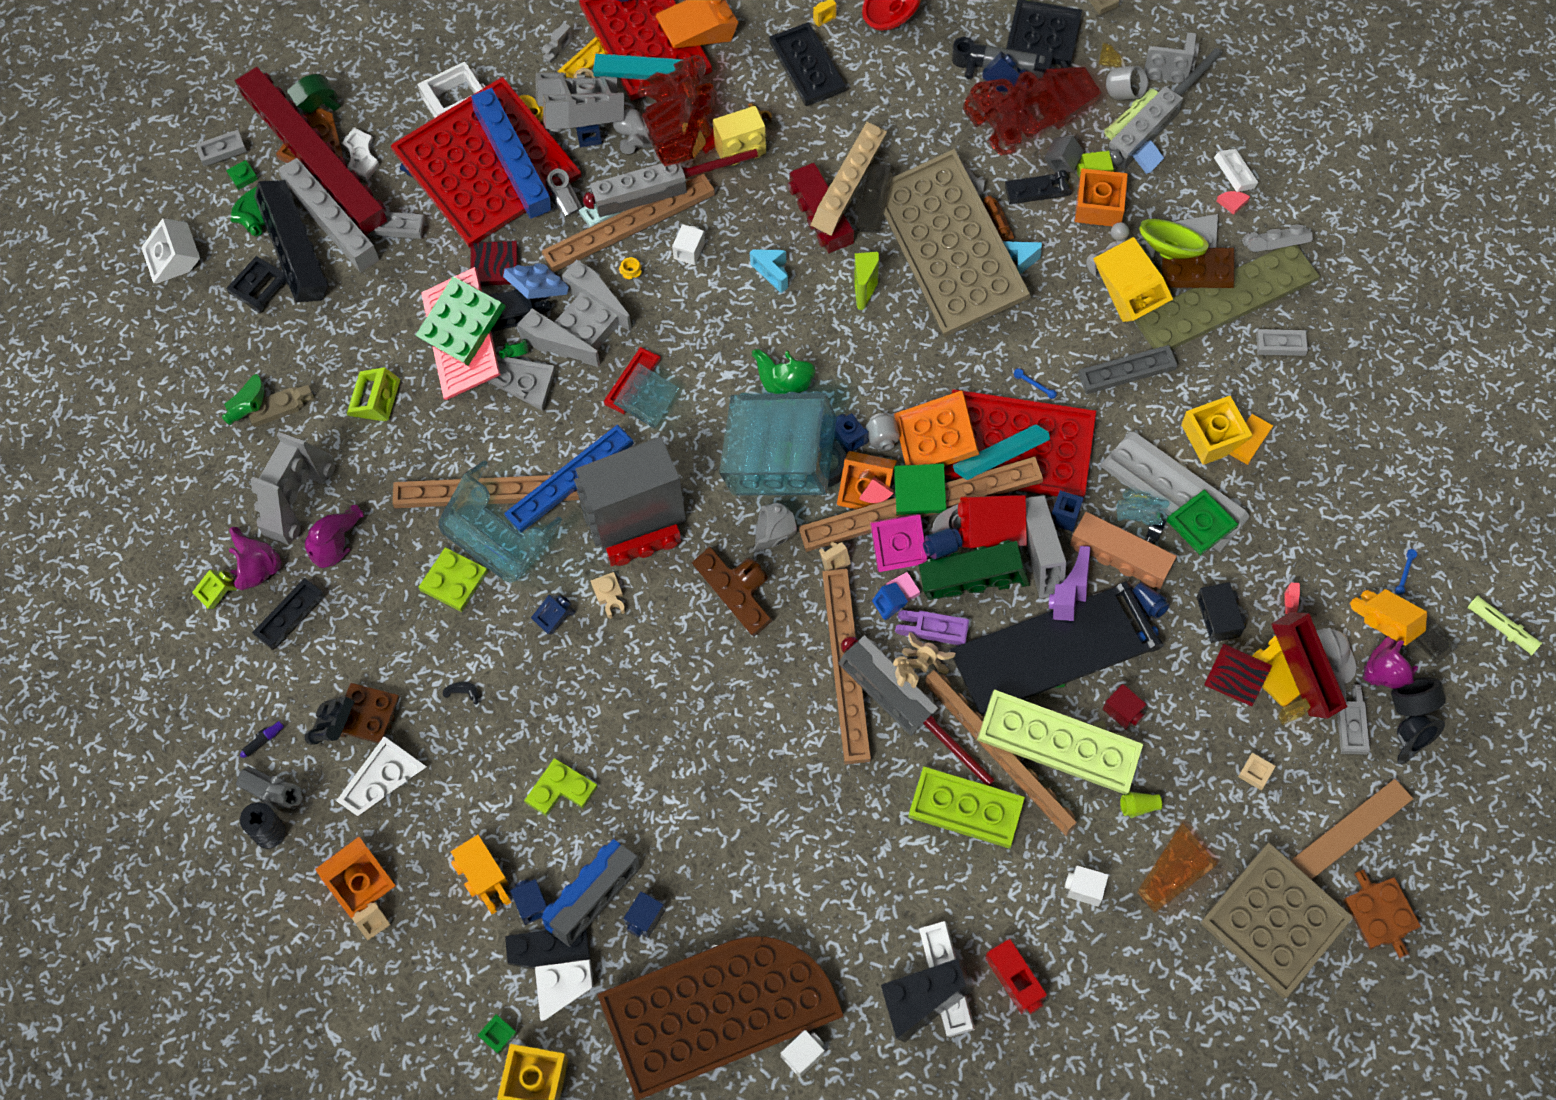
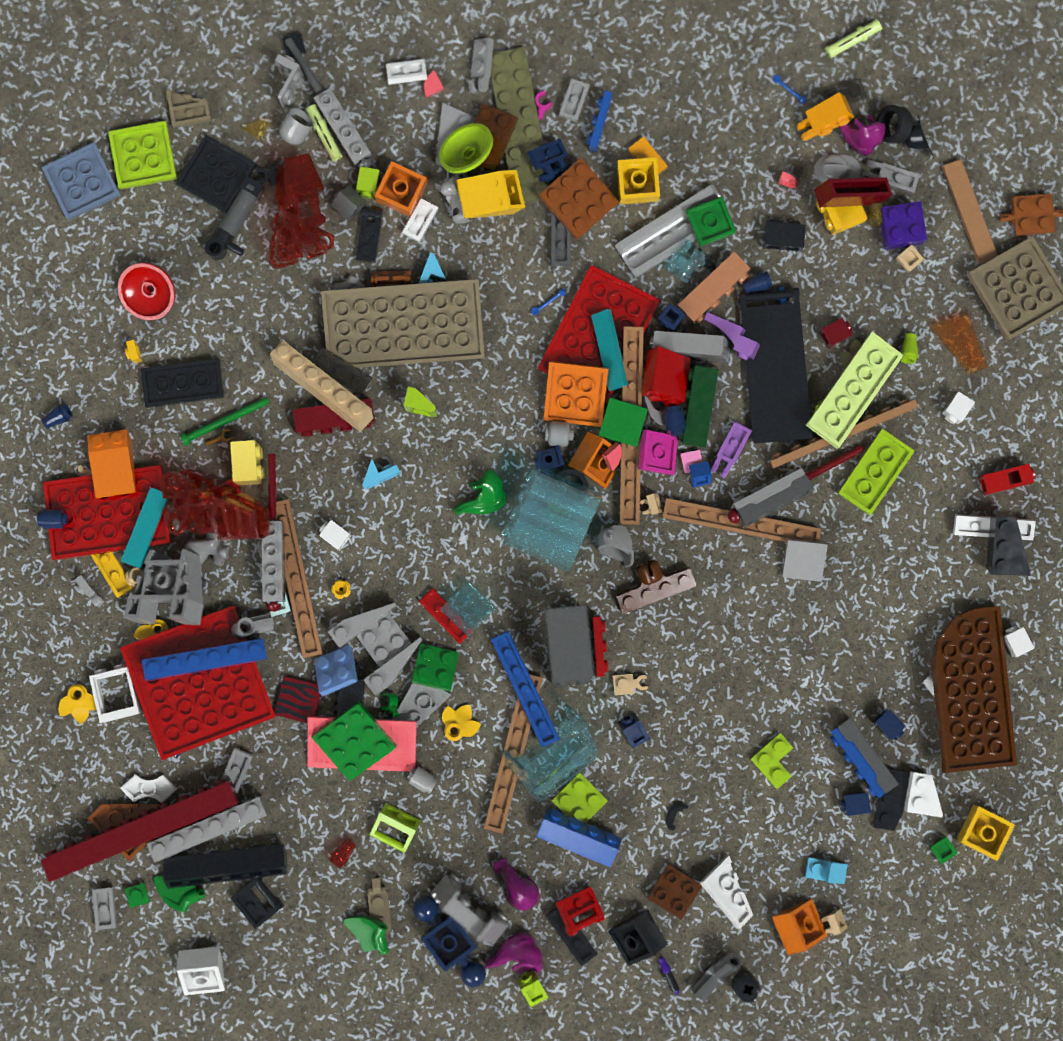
camera: 80 degrees left, 20 degrees up
(235, 483) = (449, 942): none -> dark blue brick
(301, 688) = (638, 938): none -> black slope
(313, 91) = (81, 816): dark green brick -> none
(325, 606) = (576, 905): none -> red plate
(328, 349) = (341, 854): none -> clear red cone
(330, 720) = (671, 915): black plate -> none
(407, 585) = (579, 837): none -> brick
(433, 64) = (76, 706): none -> yellow plate
(435, 405) = (422, 779): none -> light grey brick
(435, 892) = (826, 870): none -> medium azure slope
(481, 871) = (823, 834): light orange hinge -> none
(515, 427) = (461, 720): none -> yellow plate
(568, 381) = (435, 667): none -> green plate
(749, 83) = (223, 421): none -> green bar
(824, 749) = (804, 559): none -> light grey tile
(926, 655) = (752, 461): tan piece -> none
(1002, 67) = (255, 221): dark blue slope -> none
(1074, 229) = (420, 220): none -> white plate
(1148, 157) = (370, 135): light blue tile -> none
(1167, 375) = (578, 198): none -> dark orange plate
(1204, 327) = (547, 154): none -> dark blue plate
(1220, 66) = (298, 40): none -> black tile
(1237, 675) = (839, 244): dark red tile -> none
(1256, 314) = (541, 108): none -> dark pink piece
(1269, 374) = (599, 121): none -> blue plate
(1294, 747) = (903, 225): none -> dark purple brick

